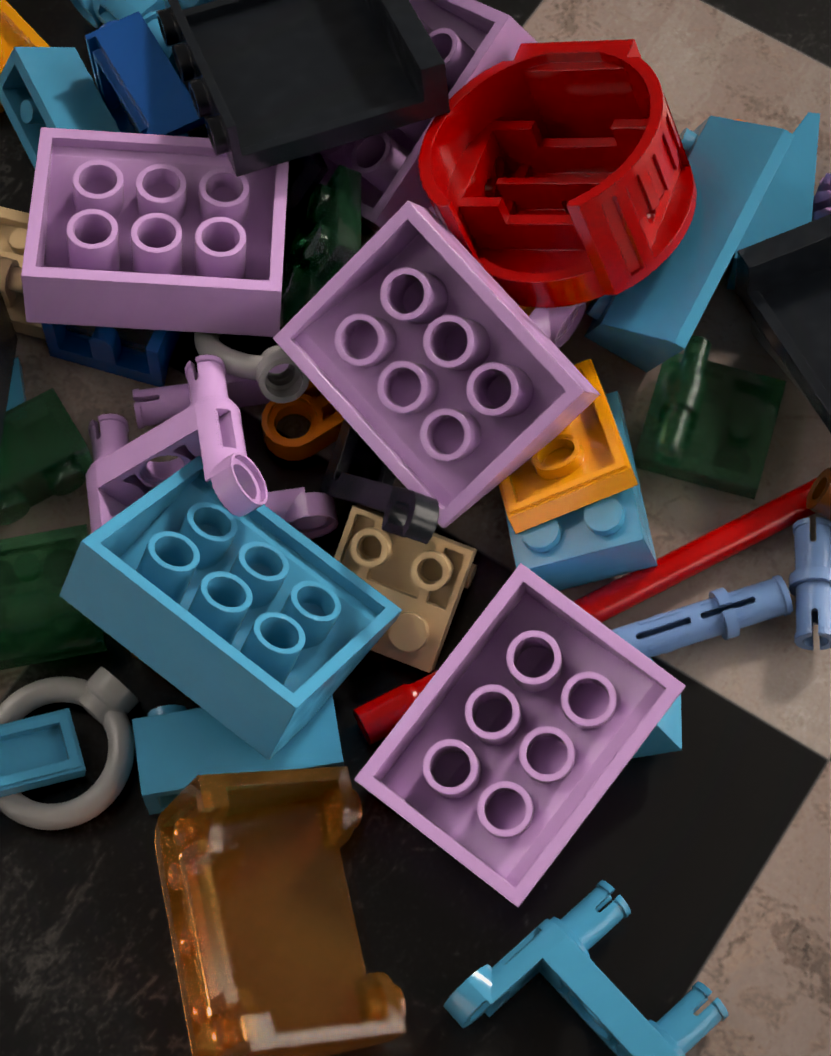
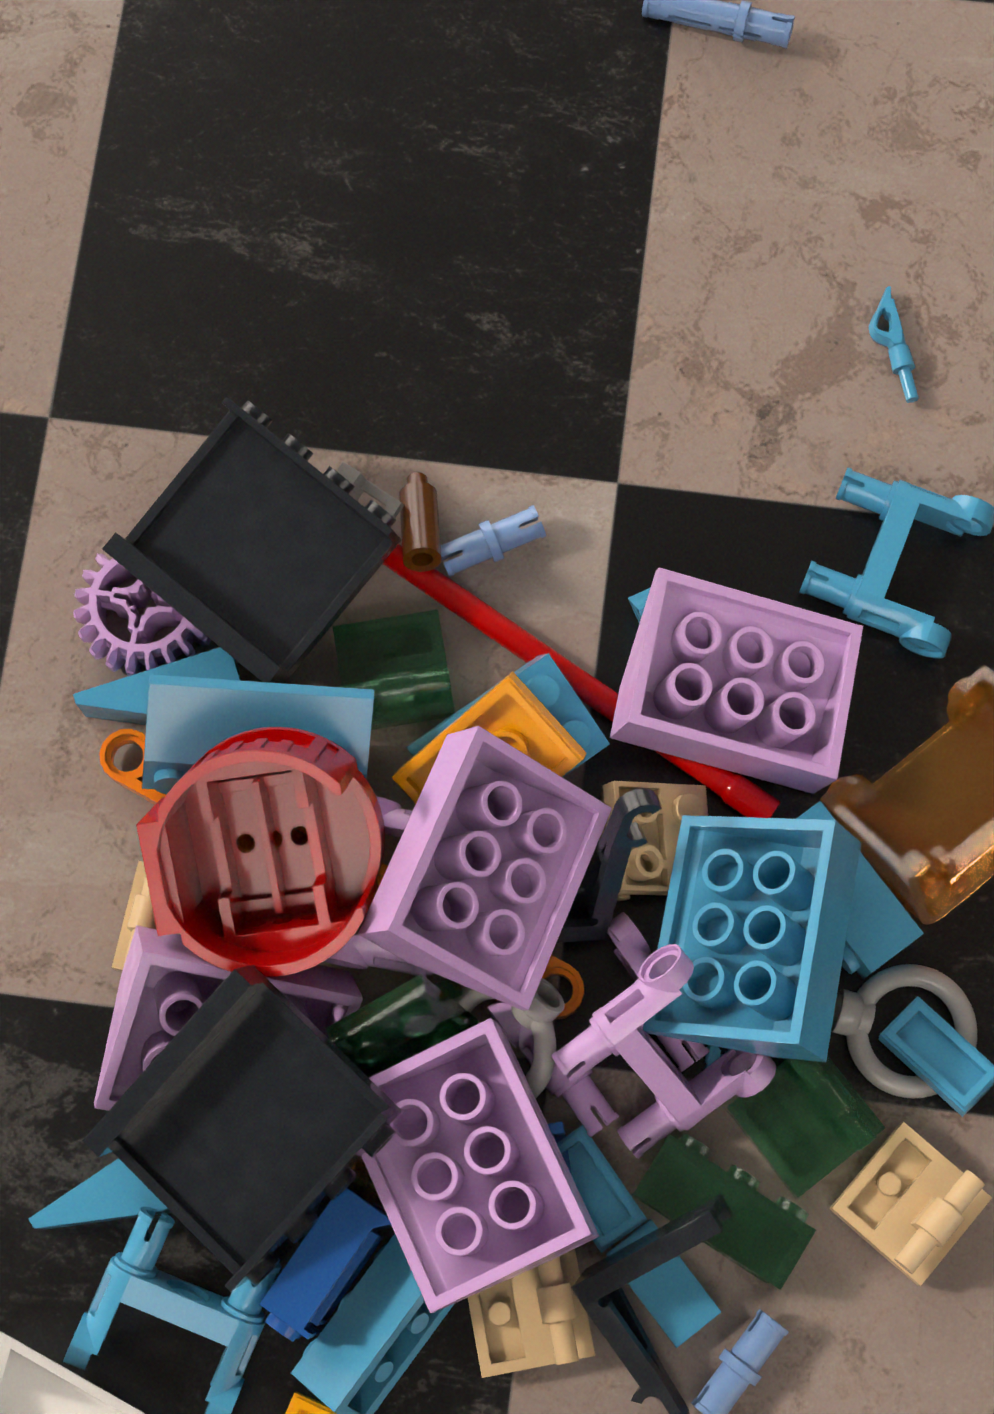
camera: 115 degrees left, 10 degrees up
(81, 380) = (601, 1189): none -> dark azure tile
(719, 615) = (566, 611): medium blue pin -> none

